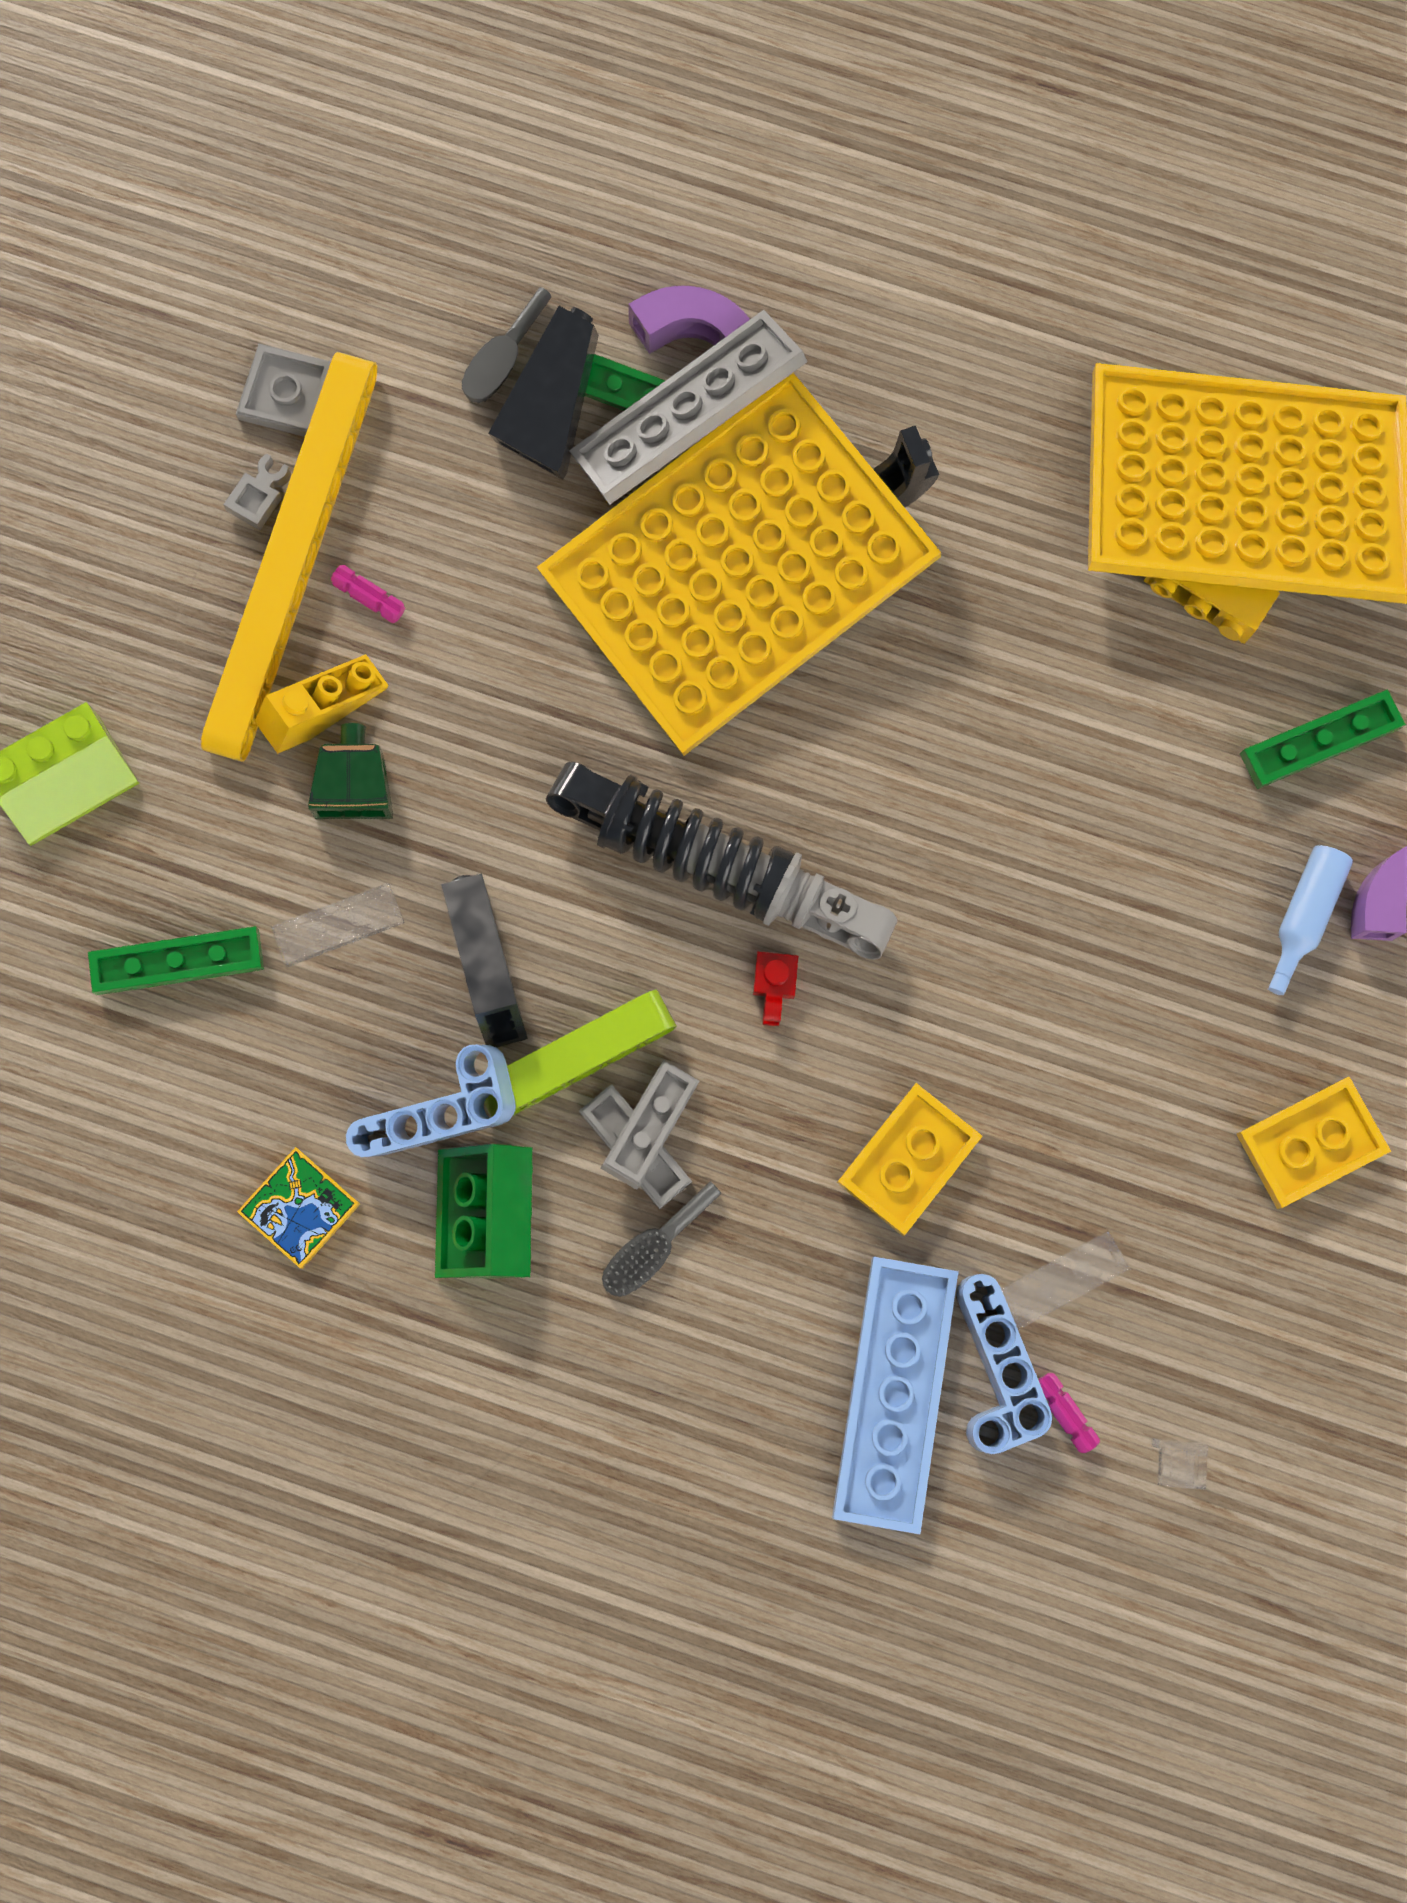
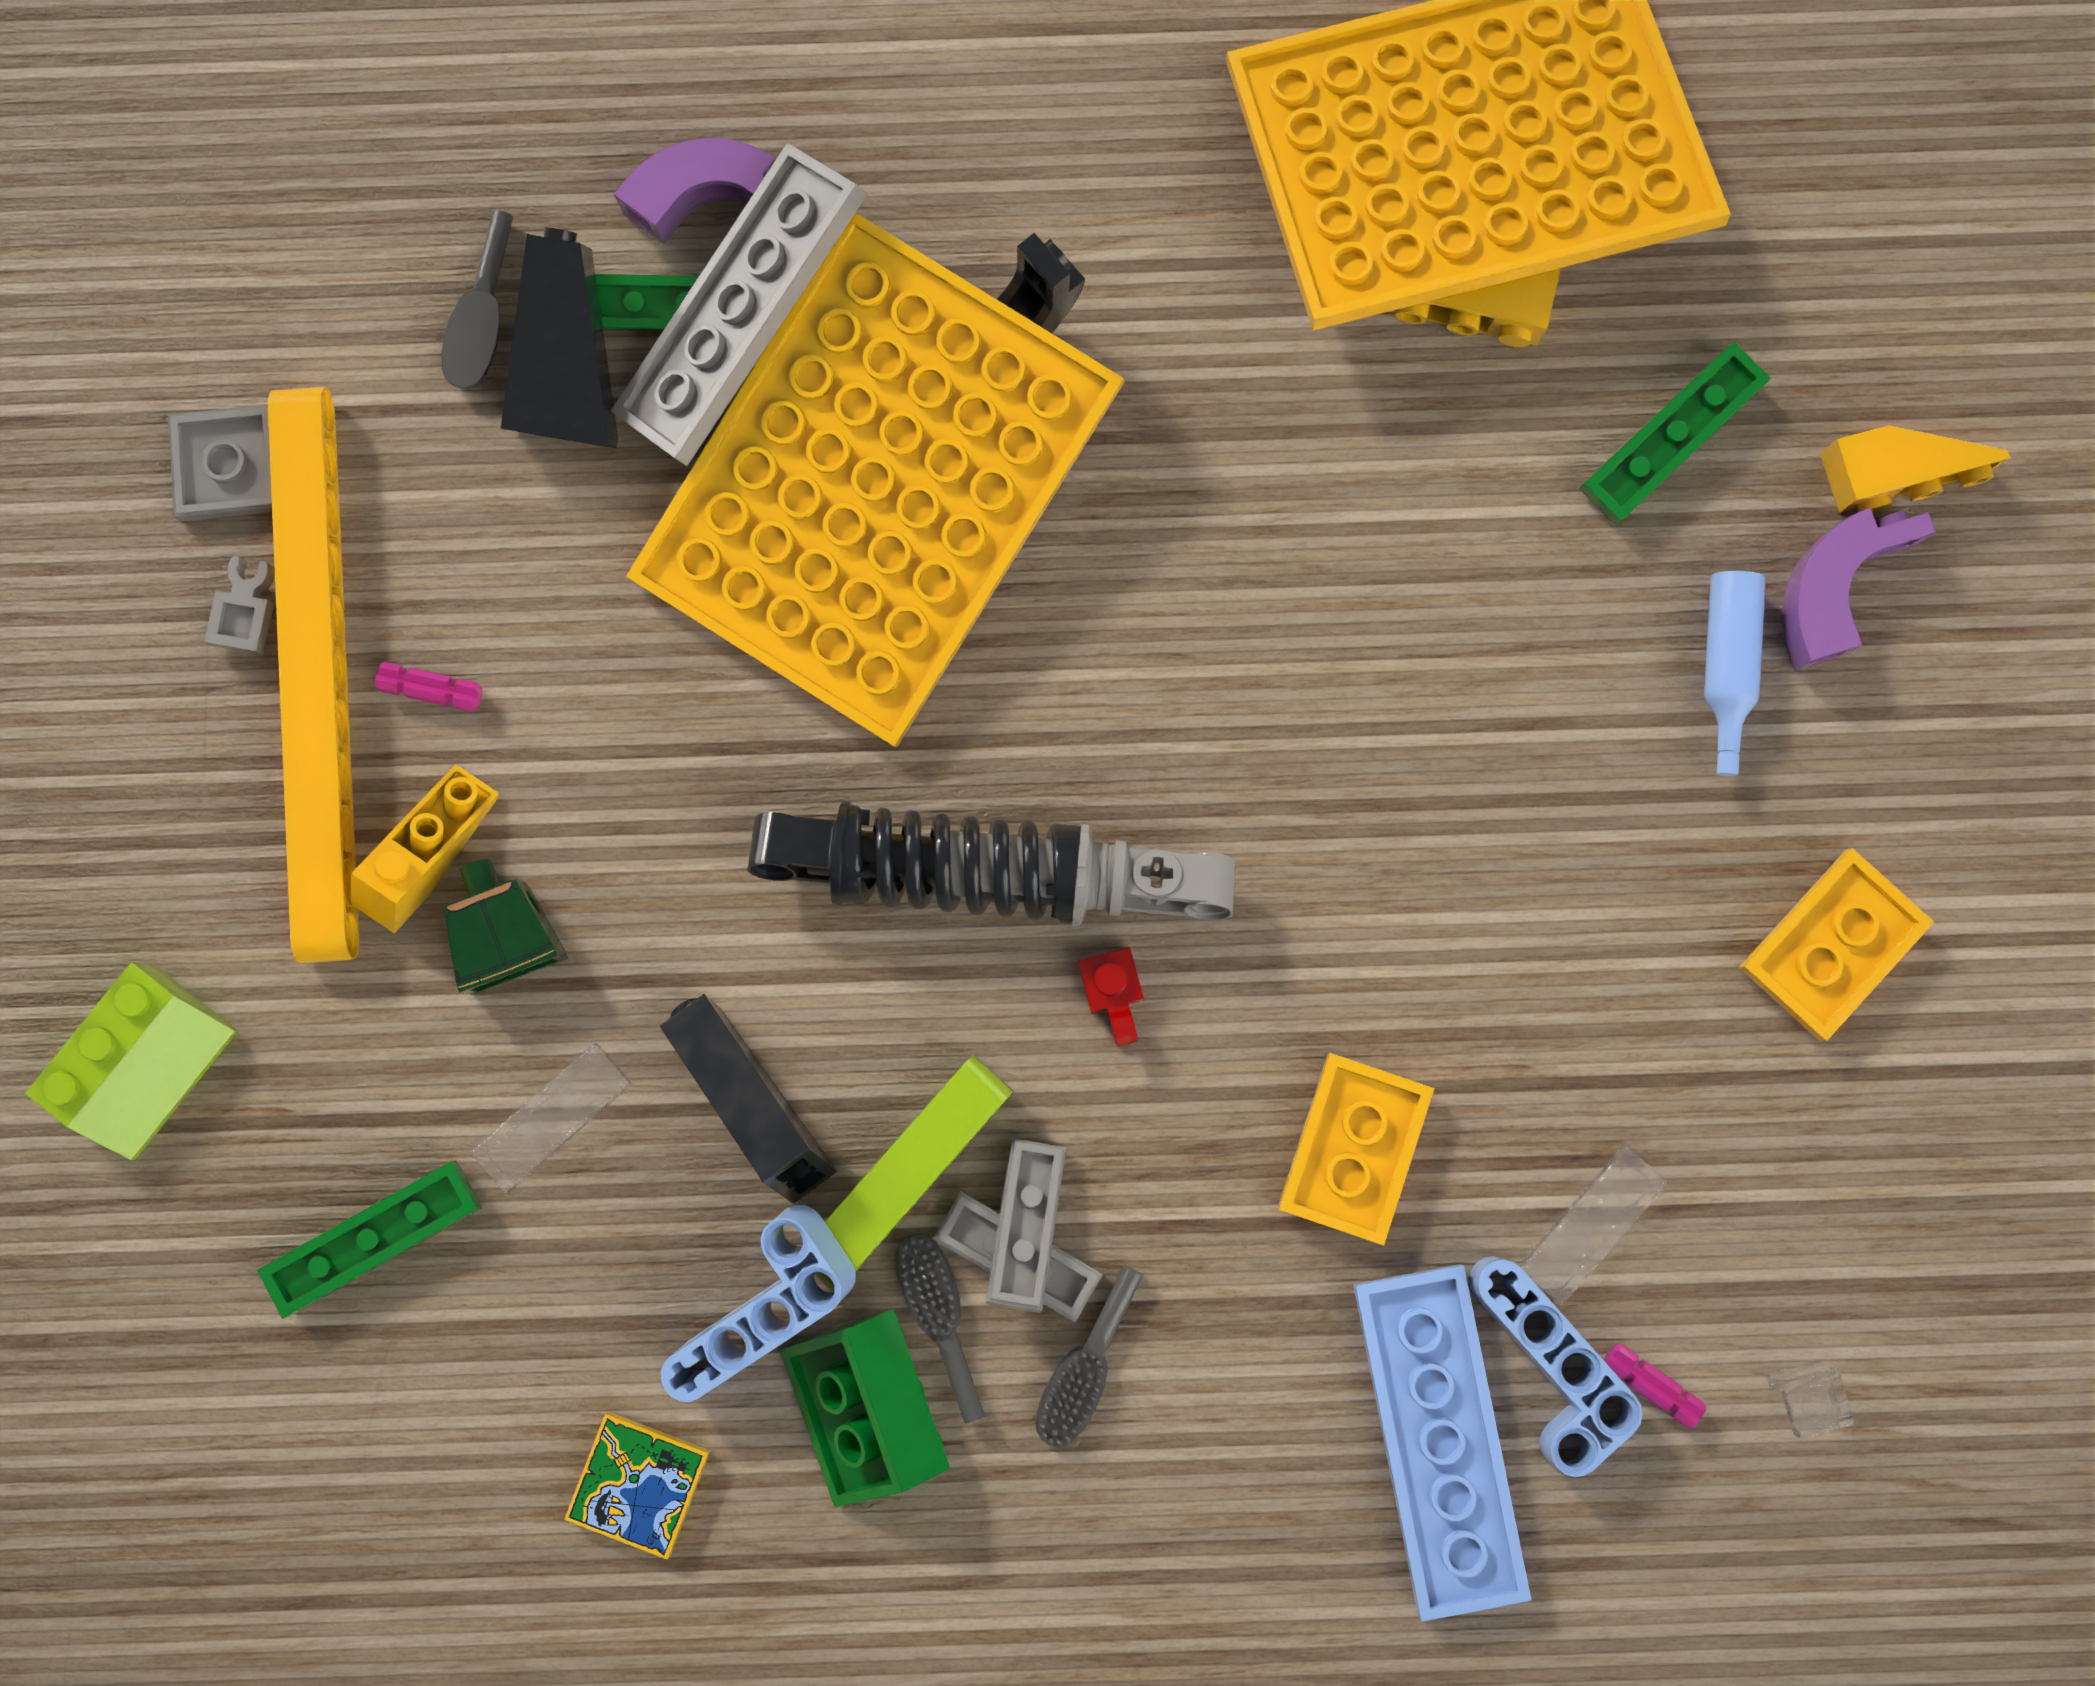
camera: 10 degrees left, 5 degrees up
(562, 1162) = (936, 1307): none -> dark grey piece

